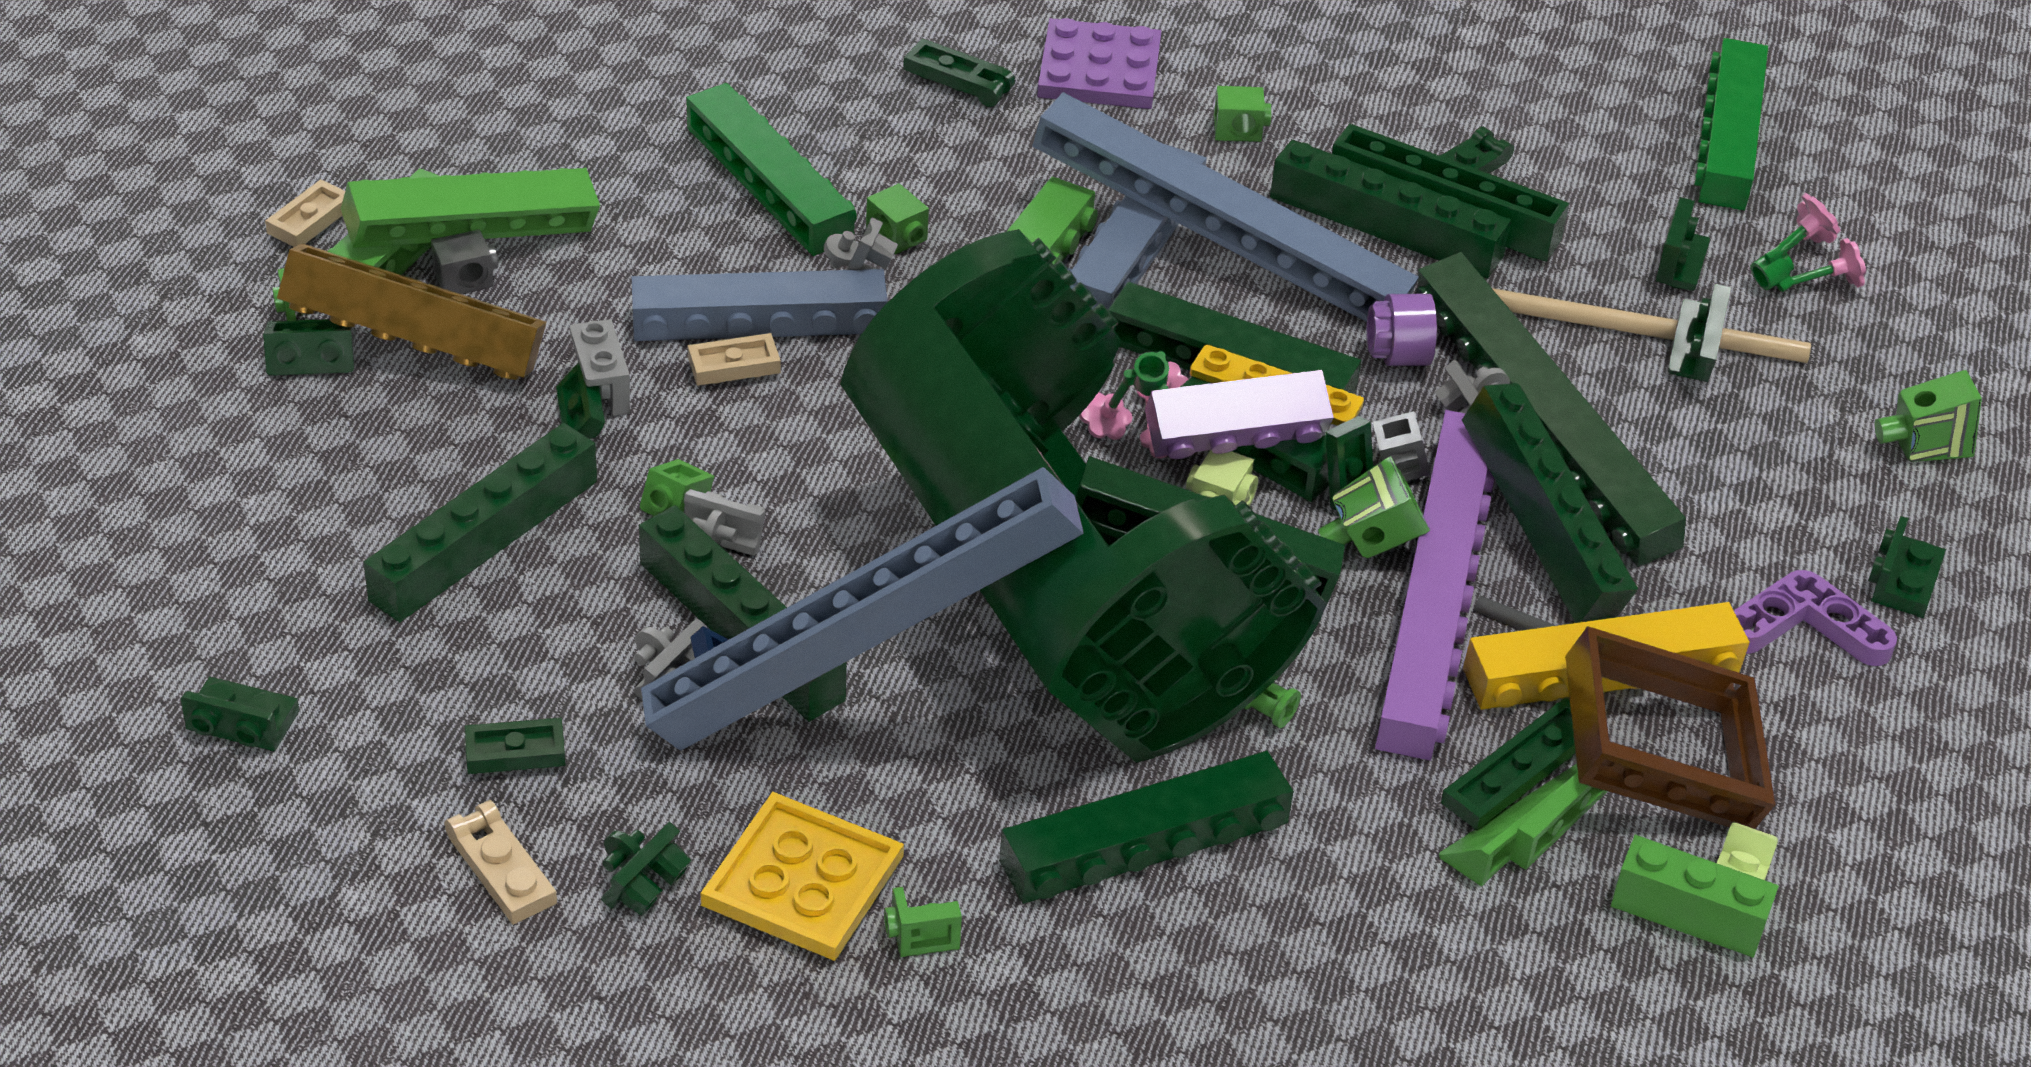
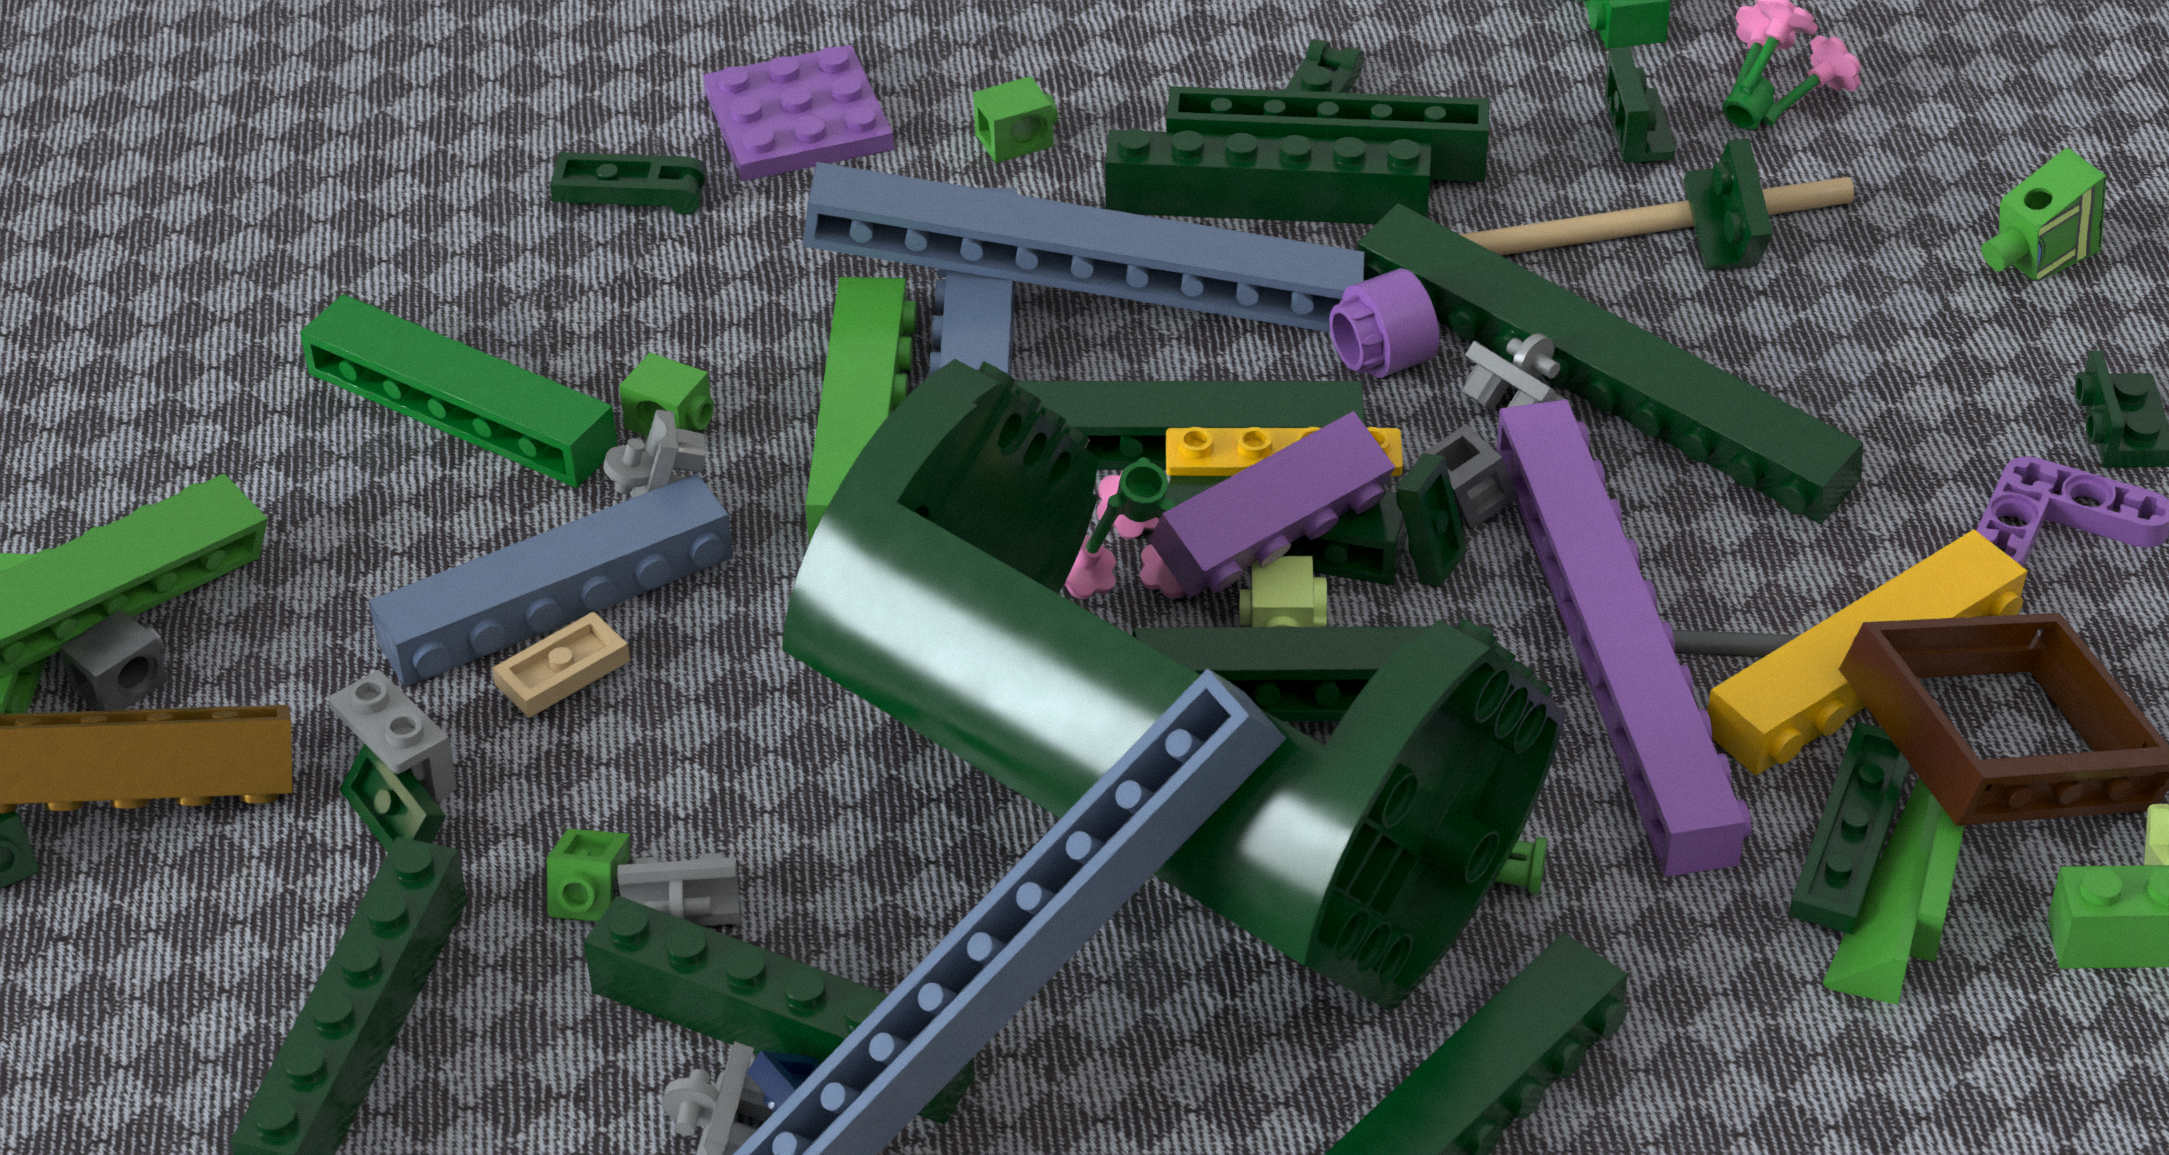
camera: 20 degrees left, 0 degrees up
(1376, 511) = (1500, 568): bright green torso -> none
(1548, 504) = (1698, 483): dark green brick -> none

